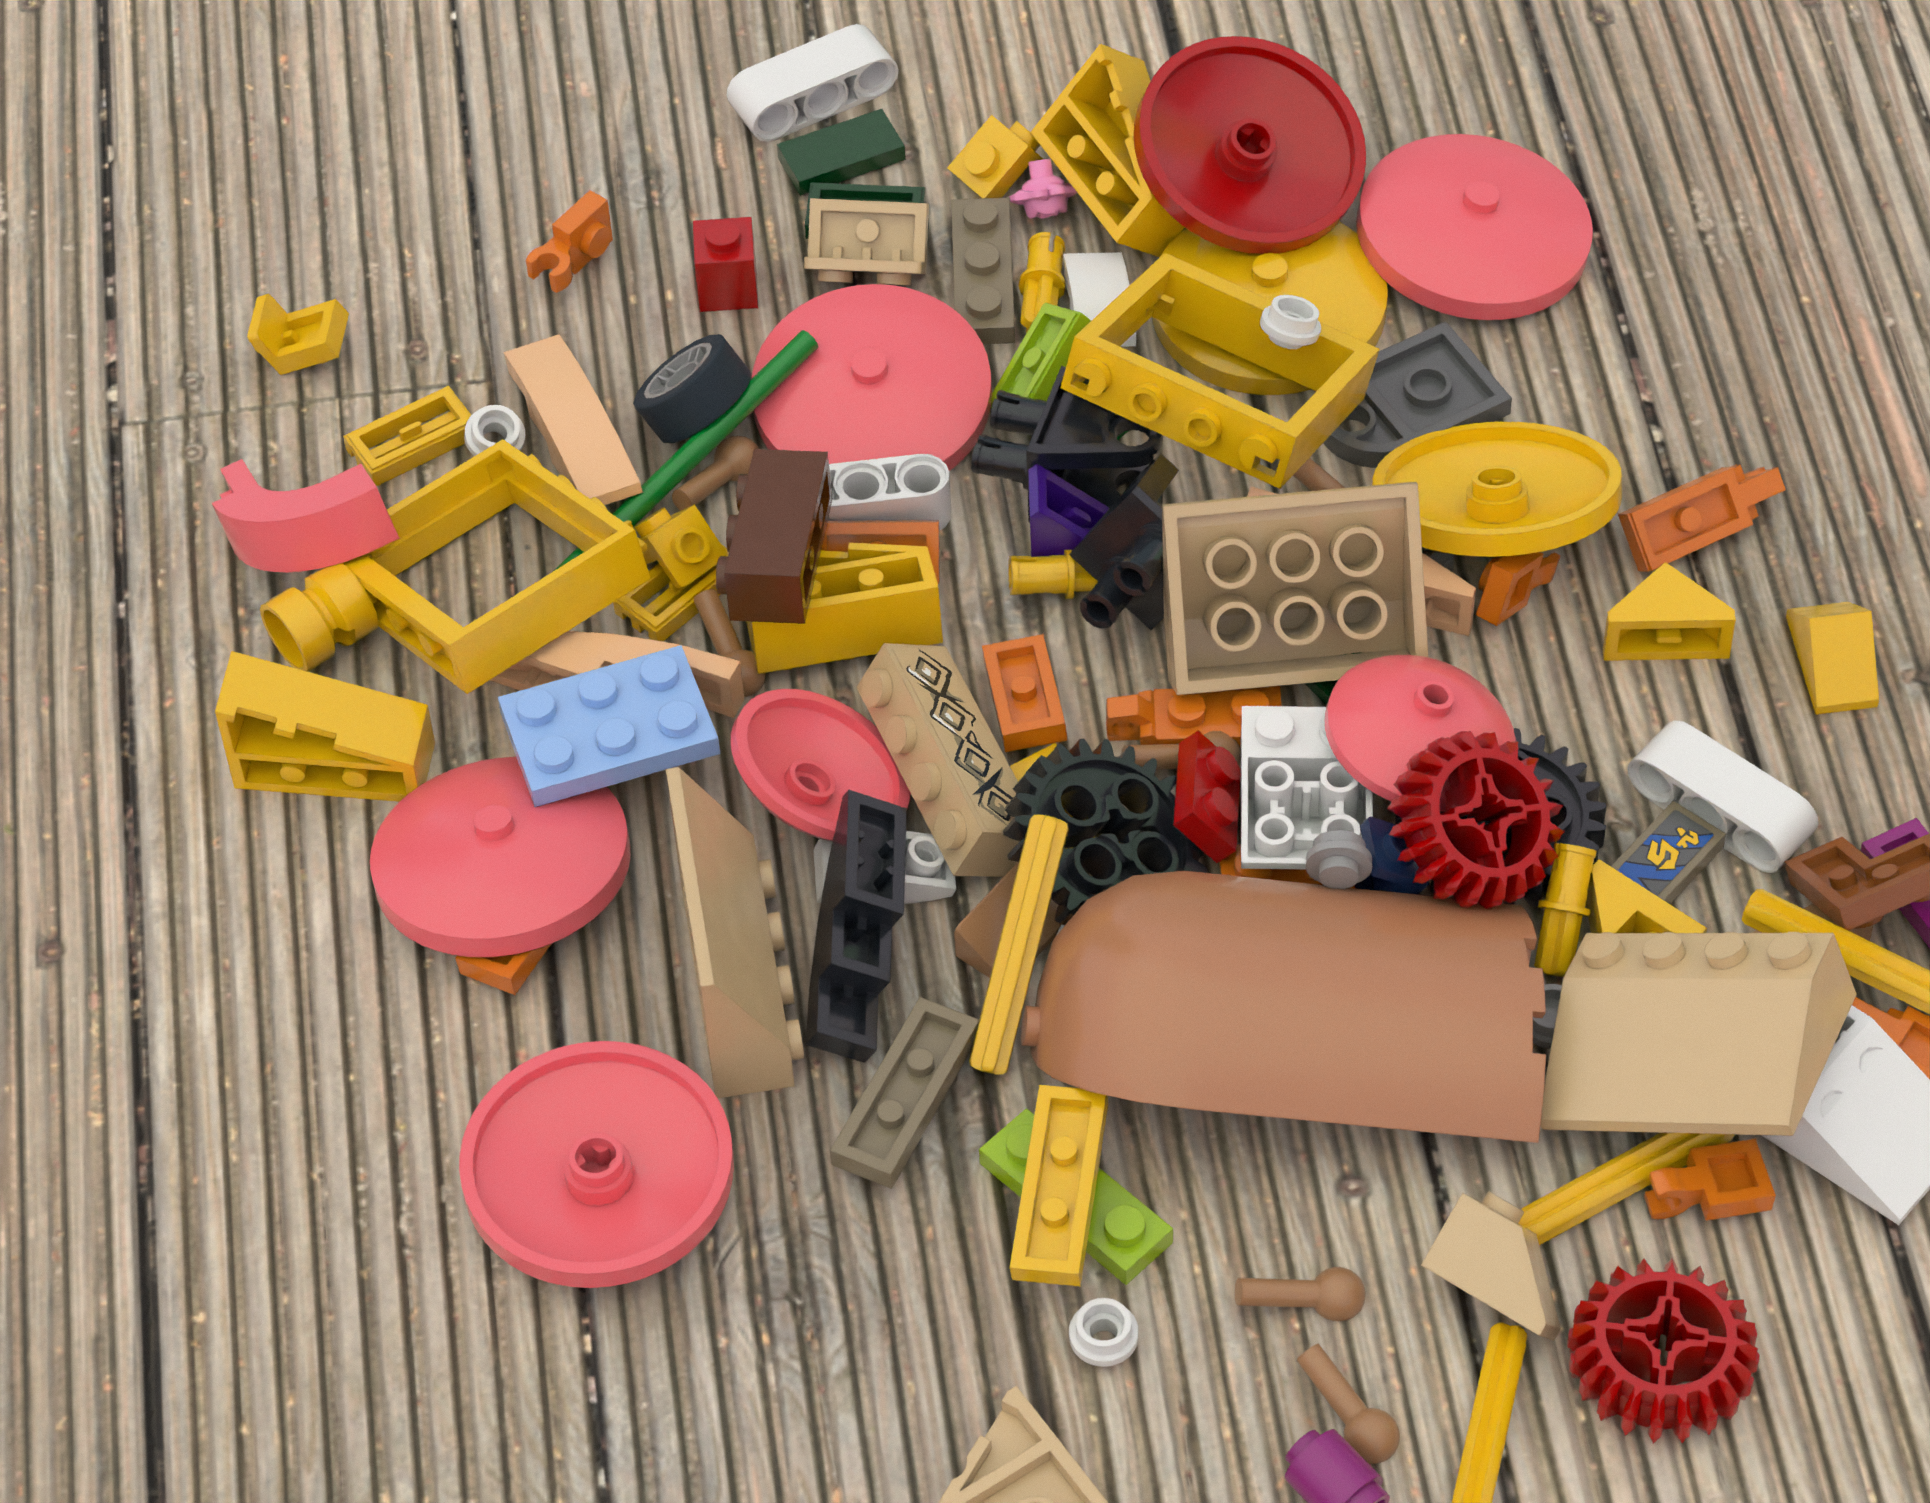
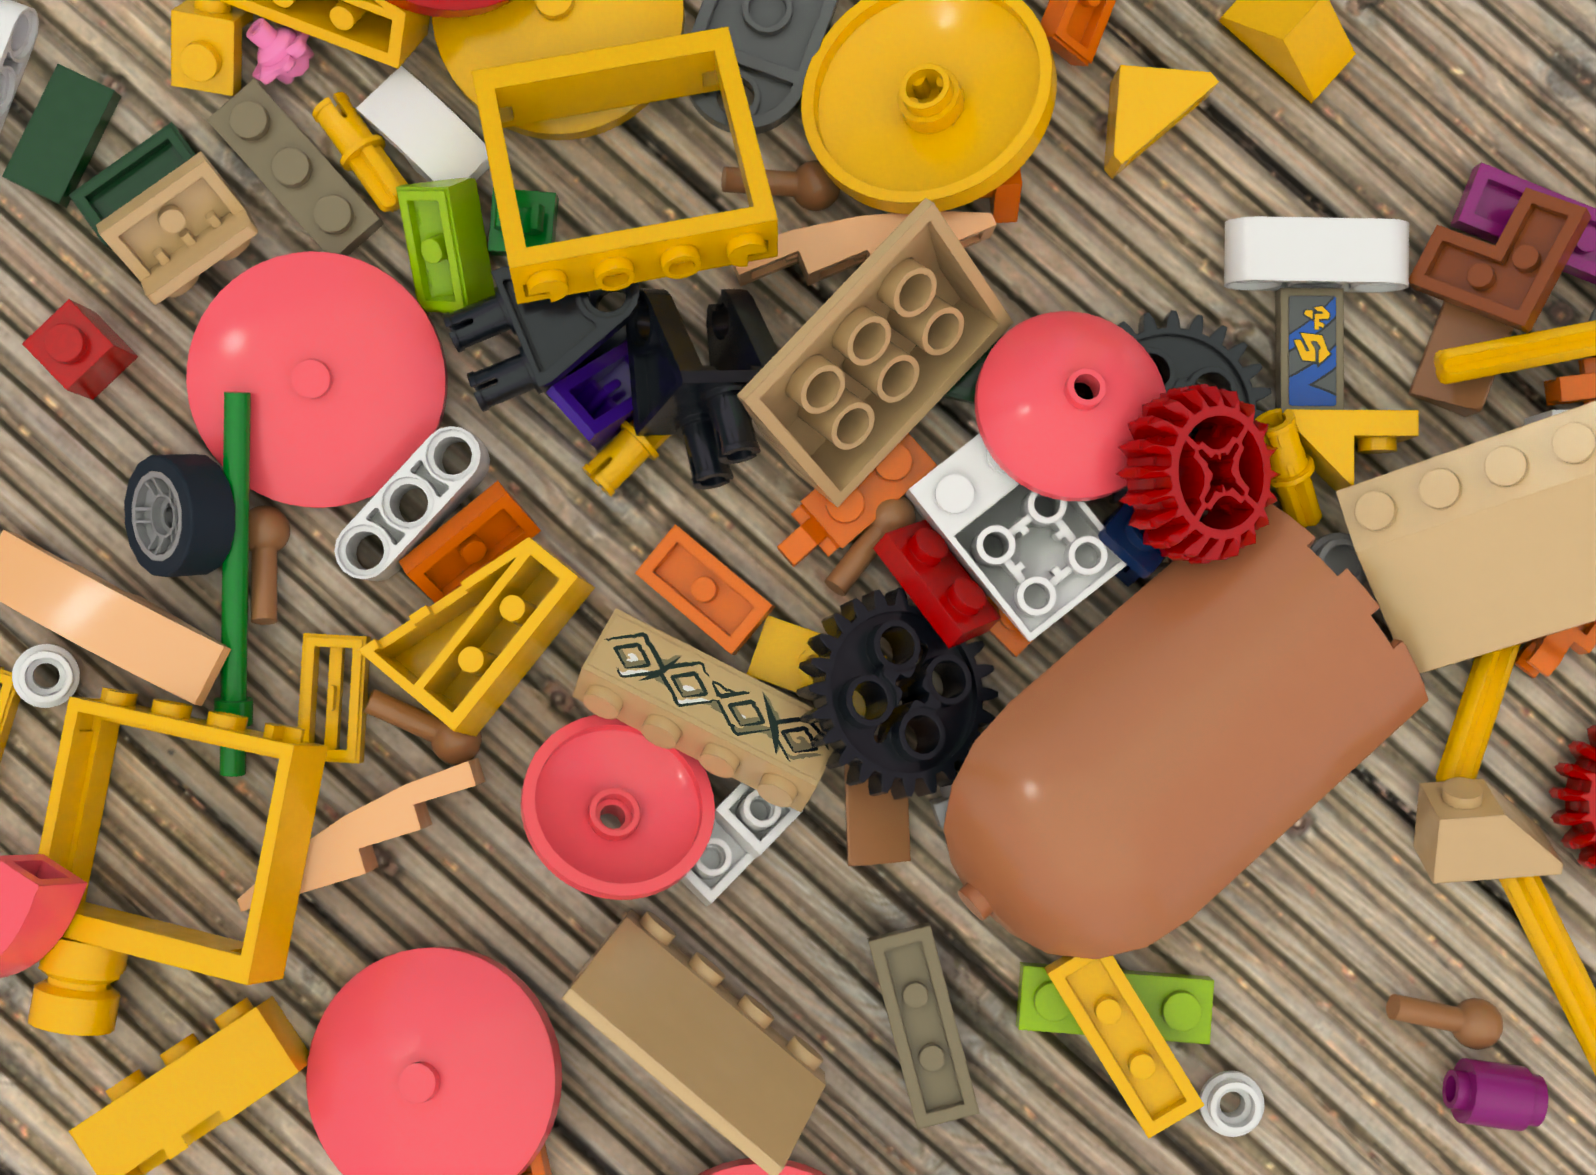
camera: 50 degrees left, 35 degrees up
(608, 725) = (424, 918): light blue plate -> none
(680, 544) = (303, 675): yellow bracket -> none
(776, 536) = (407, 642): reddish brown brick -> none
(855, 925) = (769, 924): black slope -> none
(1018, 944) = (921, 853): yellow axle -> none
(1291, 322) = (647, 59): white plate -> none
(1334, 1293) = (1360, 929): medium nougat bar -> none
(1339, 859) = (1119, 595): light grey plate -> none

